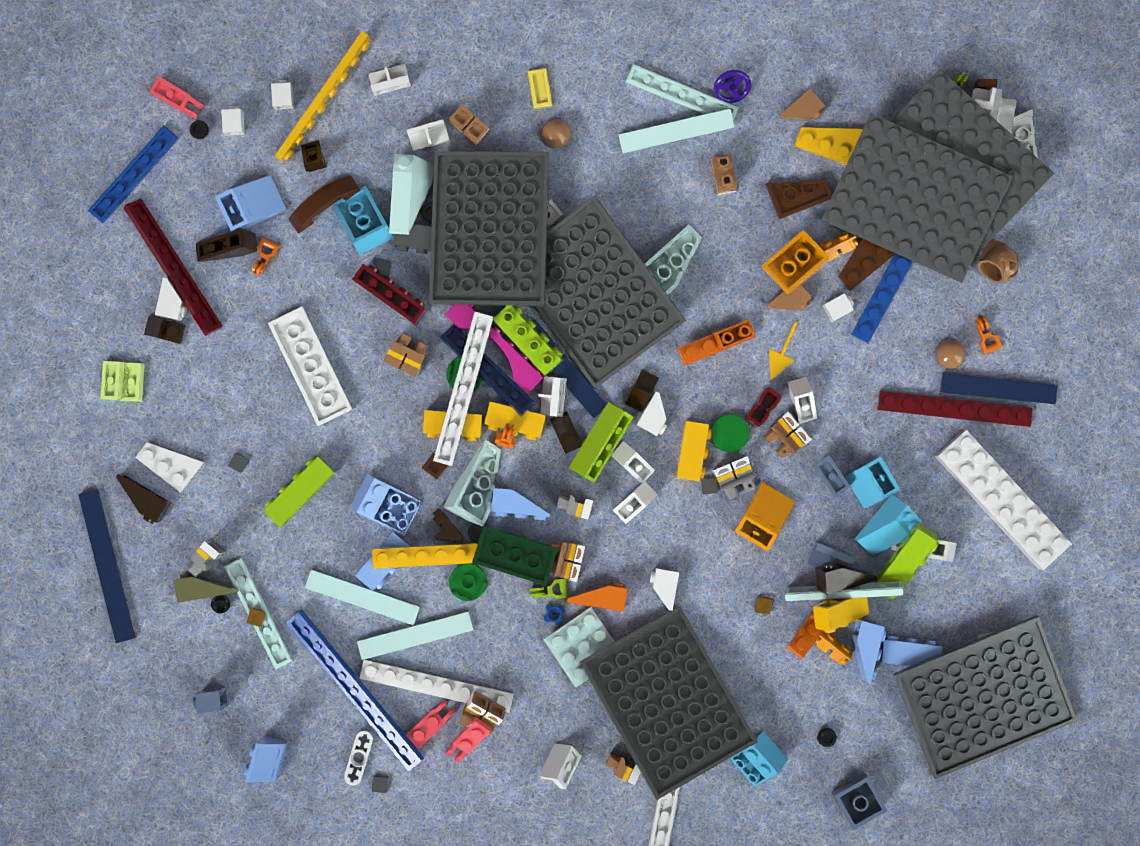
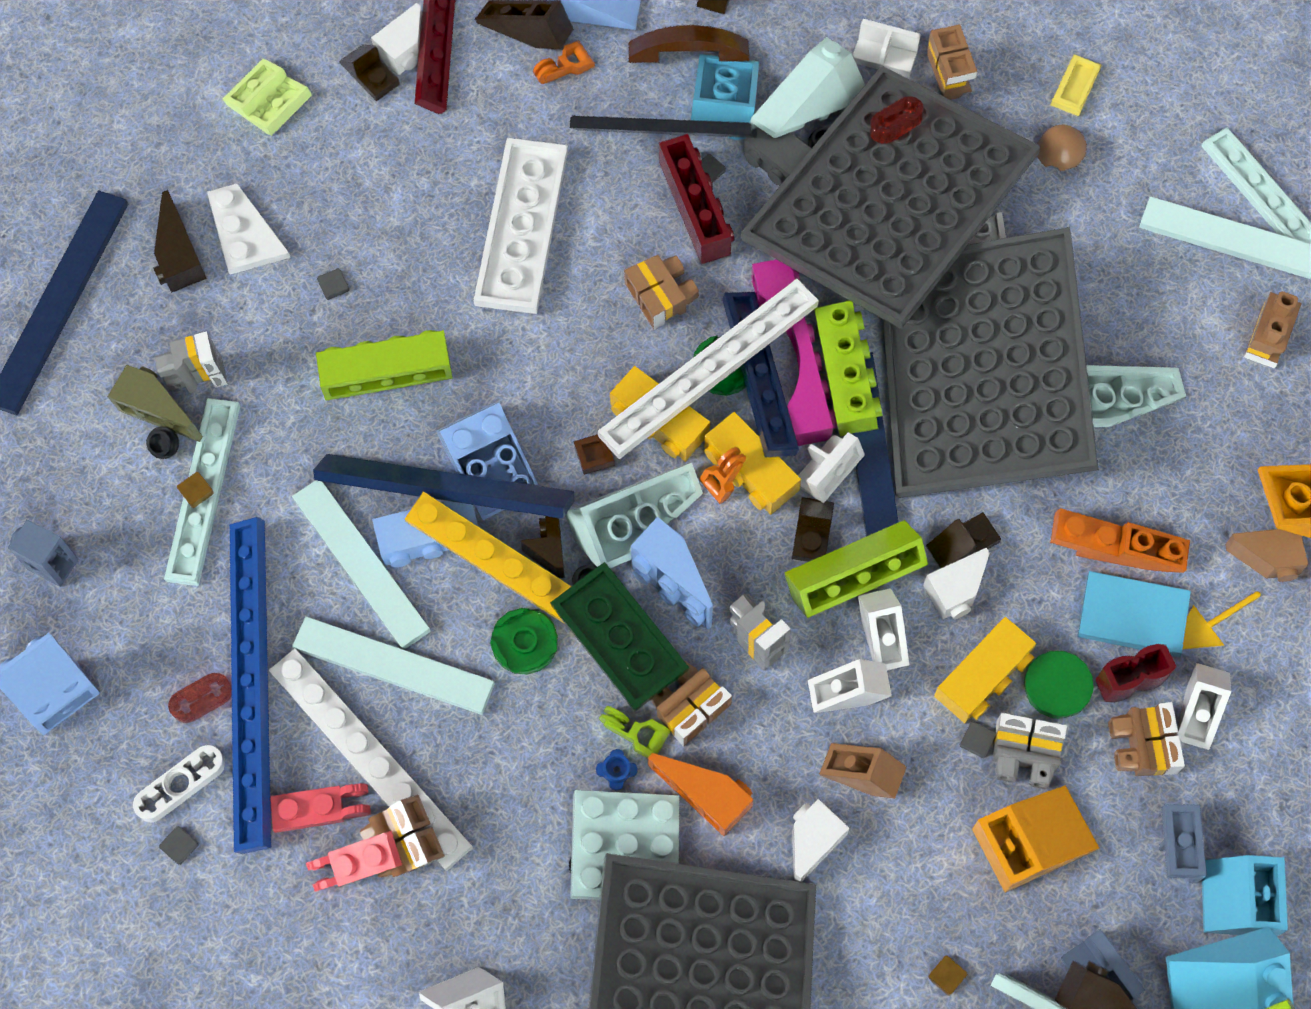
camera: 30 degrees right, 20 degrees down
(333, 710) = (196, 691): none -> clear red beam
(346, 265) = (664, 126): none -> black tile
(377, 536) = (444, 485): none -> dark blue tile
(469, 186) = (896, 119): none -> clear red beam
(666, 538) = (864, 769): none -> medium nougat slope
(744, 373) = (1133, 613): none -> medium azure tile

